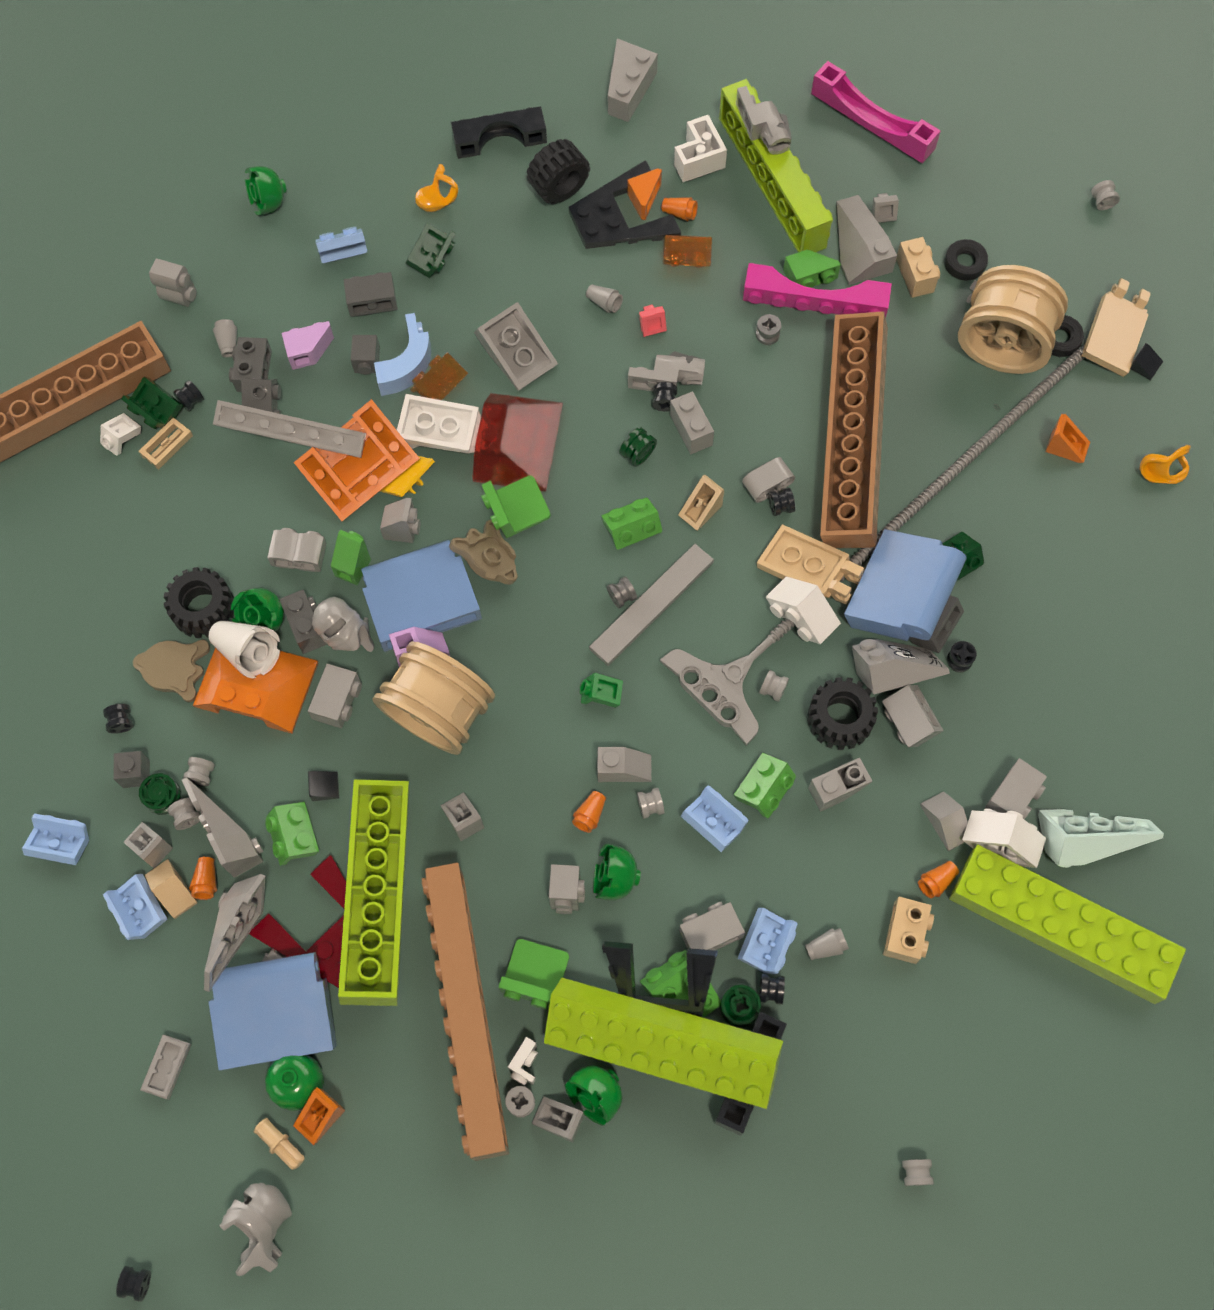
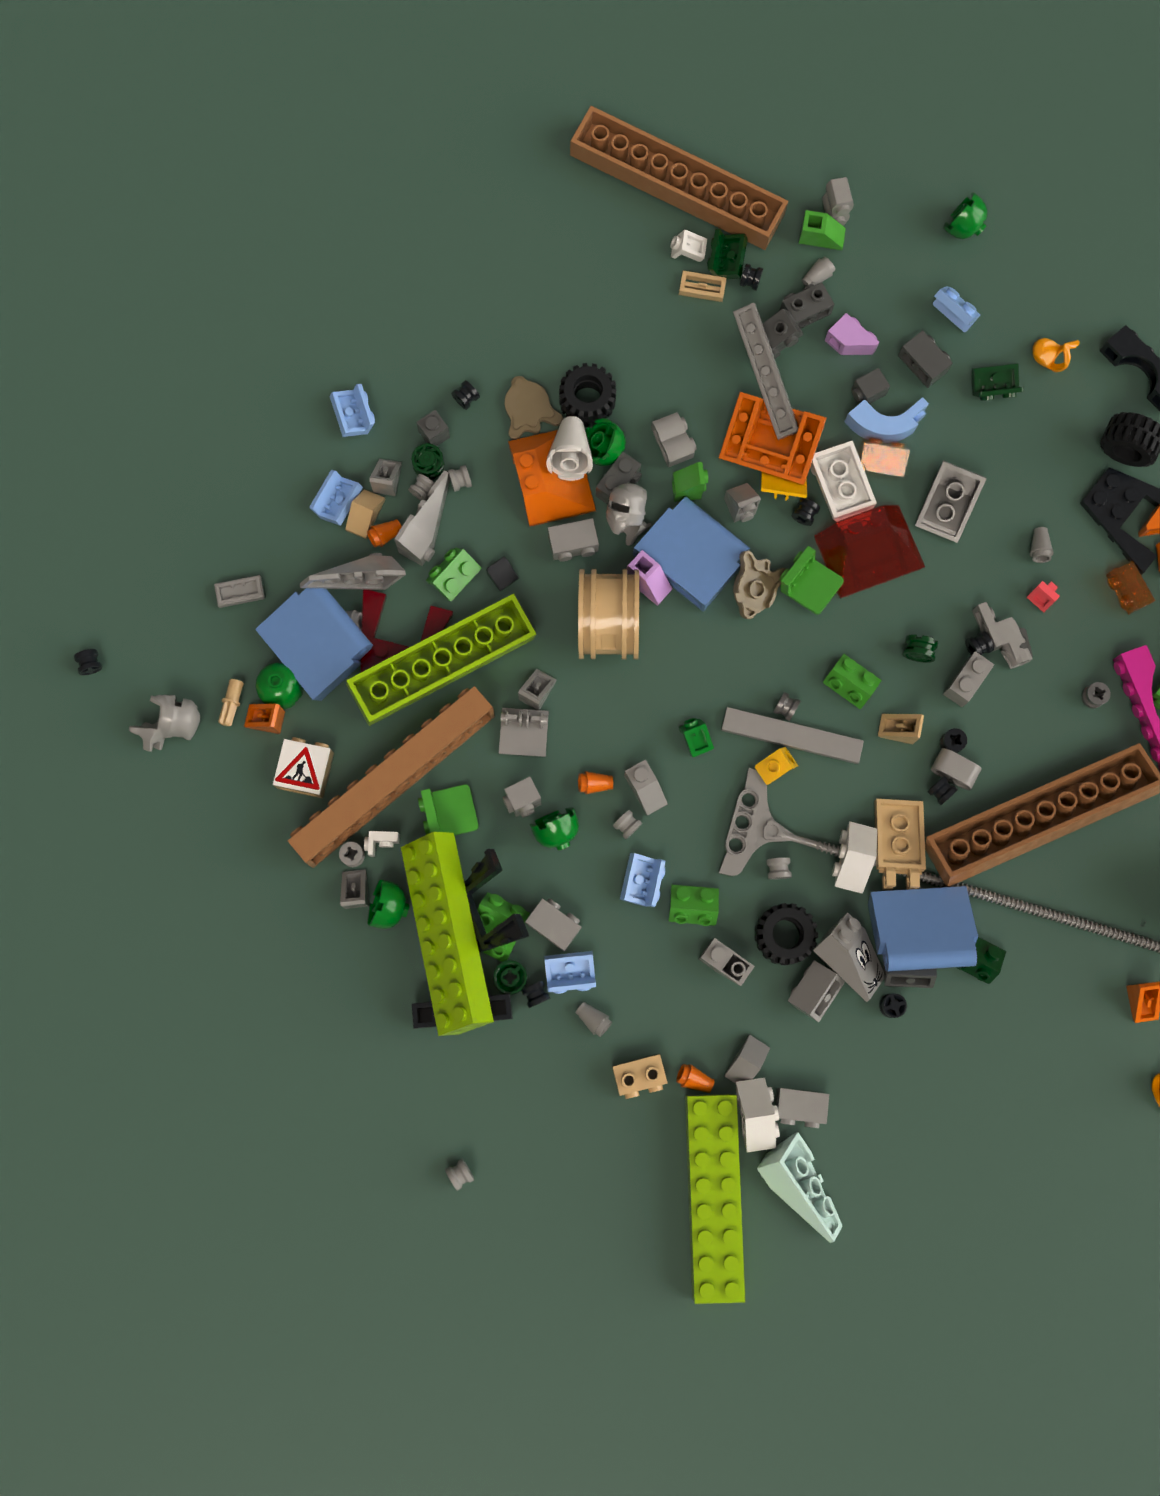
camera: 55 degrees right, 10 degrees up
(188, 312) = (821, 231): none -> bright green slope
(398, 1102) = (303, 767): none -> piece
(445, 473) = (805, 511): none -> black wheel
(497, 853) = (523, 732): none -> light grey hinge
(673, 634) = (775, 765): none -> yellow bracket
(737, 472) = (950, 743): none -> black wheel

